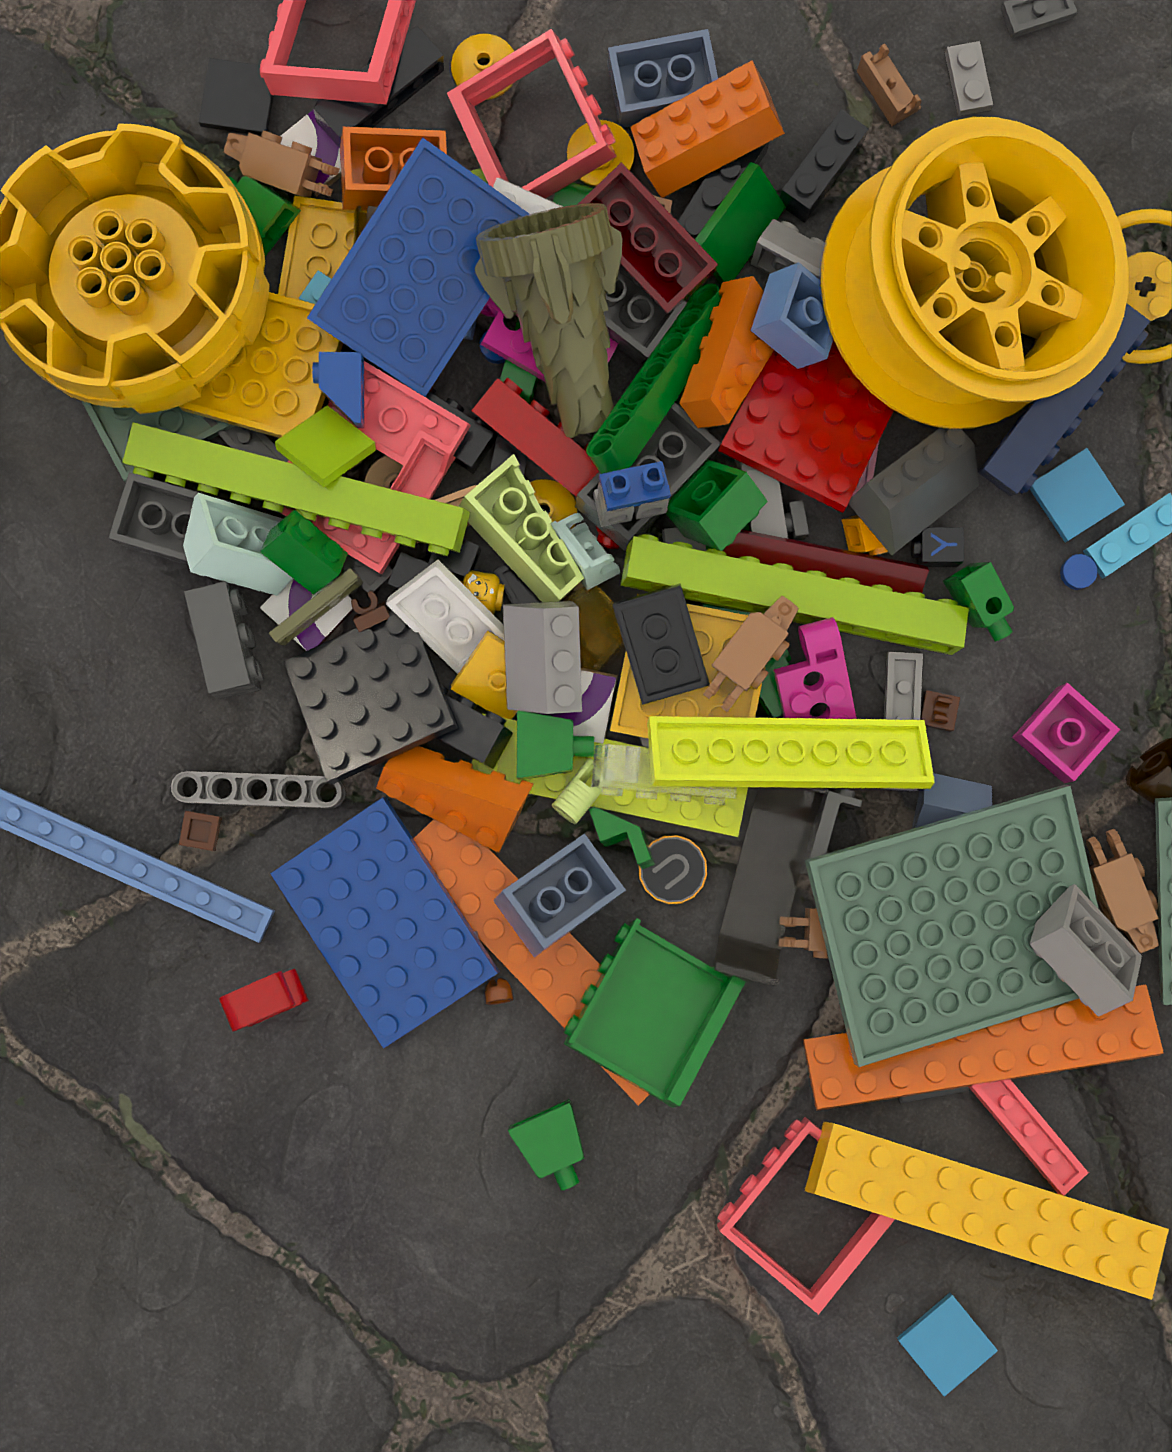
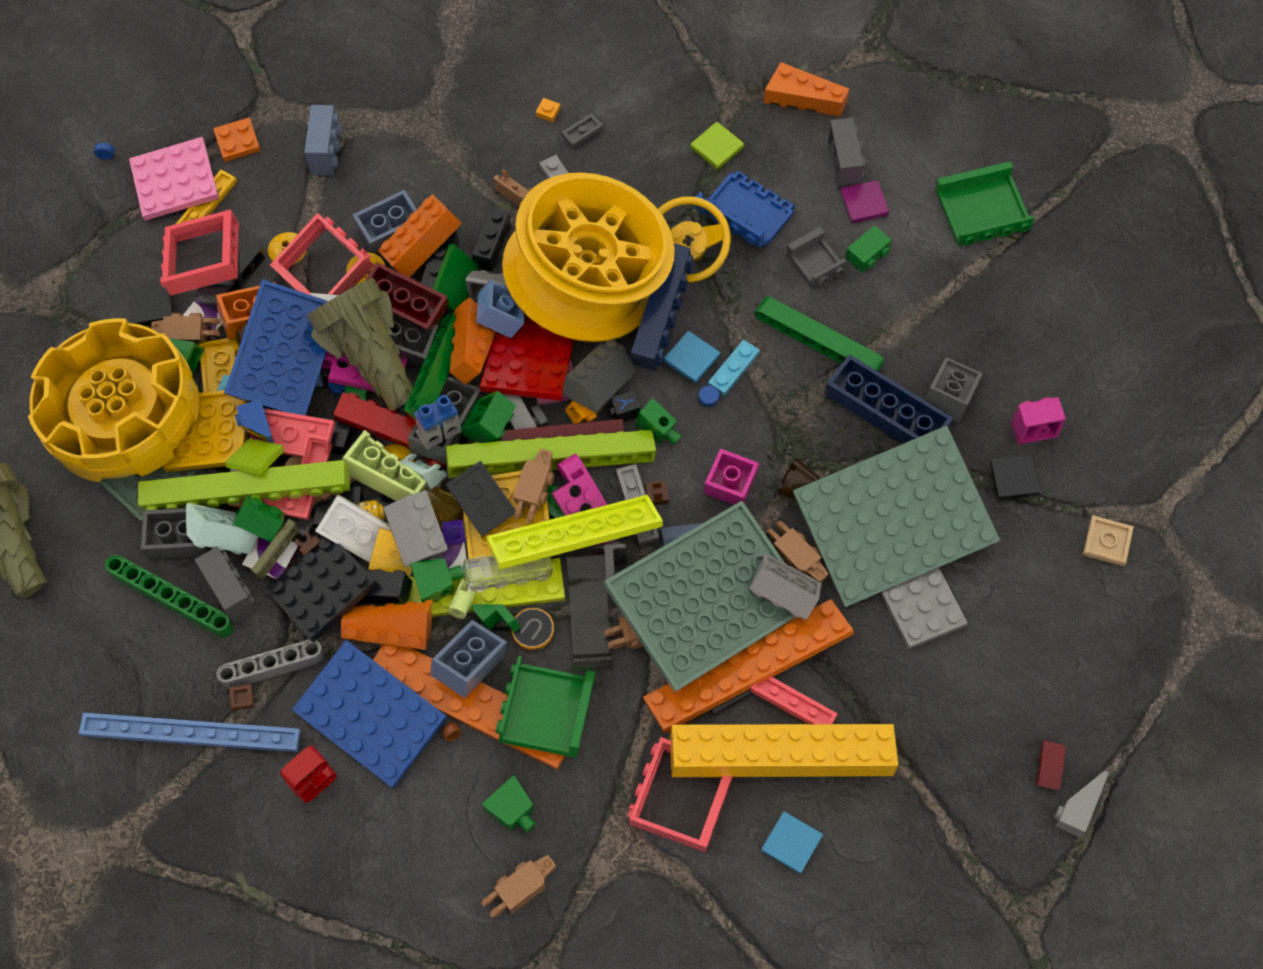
camera: 15 degrees left, 20 degrees down
(122, 611) = (164, 588): none -> green beam
(527, 1269) = (520, 886): none -> medium nougat hinge
(601, 679) = (454, 532): none -> dark purple tile

